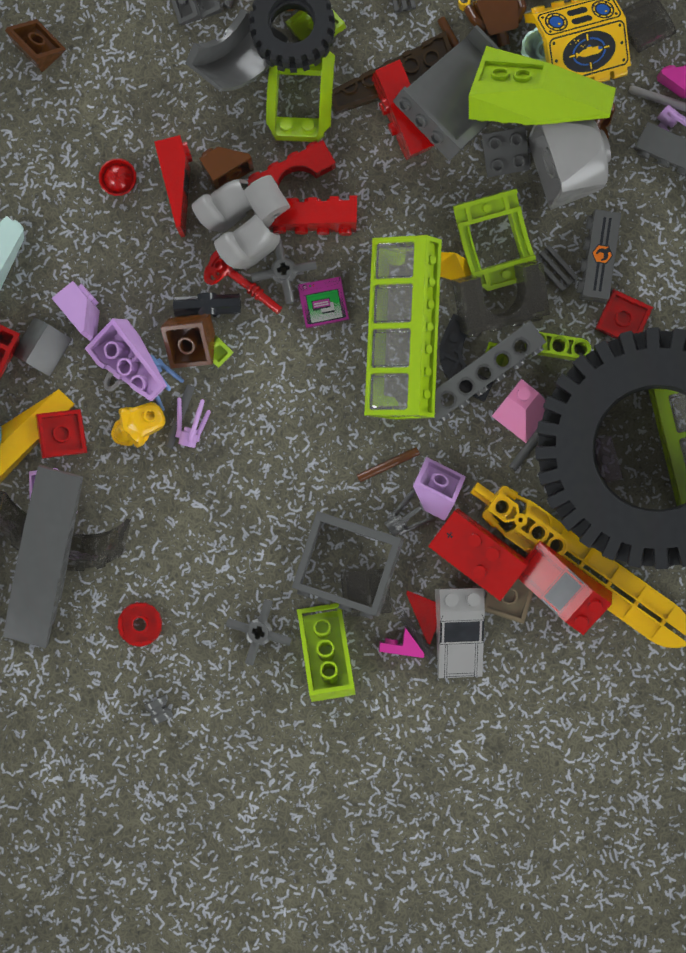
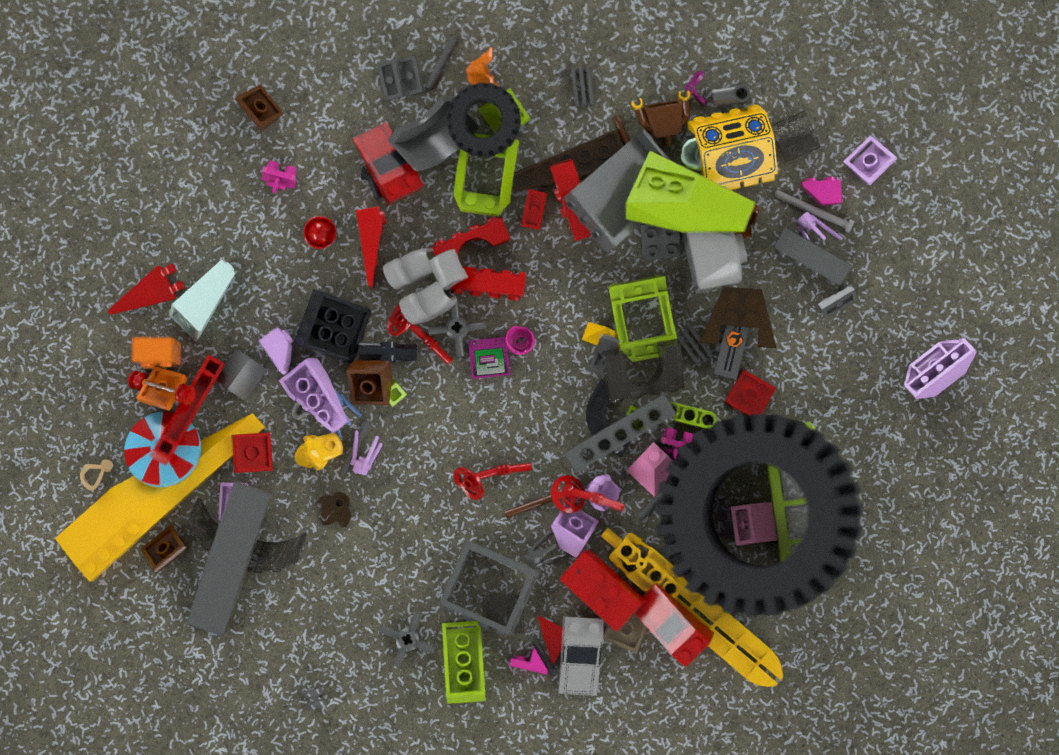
camera: 10 degrees right, 0 degrees up
(65, 120) = (279, 179): none -> dark pink hips
(141, 281) = (332, 326): none -> black slope
(151, 617) = (315, 617): red tile -> none
(161, 493) = (332, 511): none -> dark brown plate
(172, 114) = (364, 176): none -> black bar
(189, 95) = (387, 167): none -> red slope
(225, 165) = (414, 233): reddish brown slope -> none
(318, 441) = (472, 480): none -> red dish
(351, 271) = (522, 347): none -> dark pink hair
(359, 128) = (534, 209): none -> red plate
(403, 327) = (555, 389): window -> none
(432, 446) = (573, 493): none -> red dish
(456, 270) = (605, 343): none -> dark grey bracket
(467, 442) = (604, 485): none -> lavender hair
(537, 375) = (669, 438): none -> dark pink hips
(604, 218) = (740, 308): none -> dark brown wing
(645, 462) = (754, 523): none -> bright pink slope

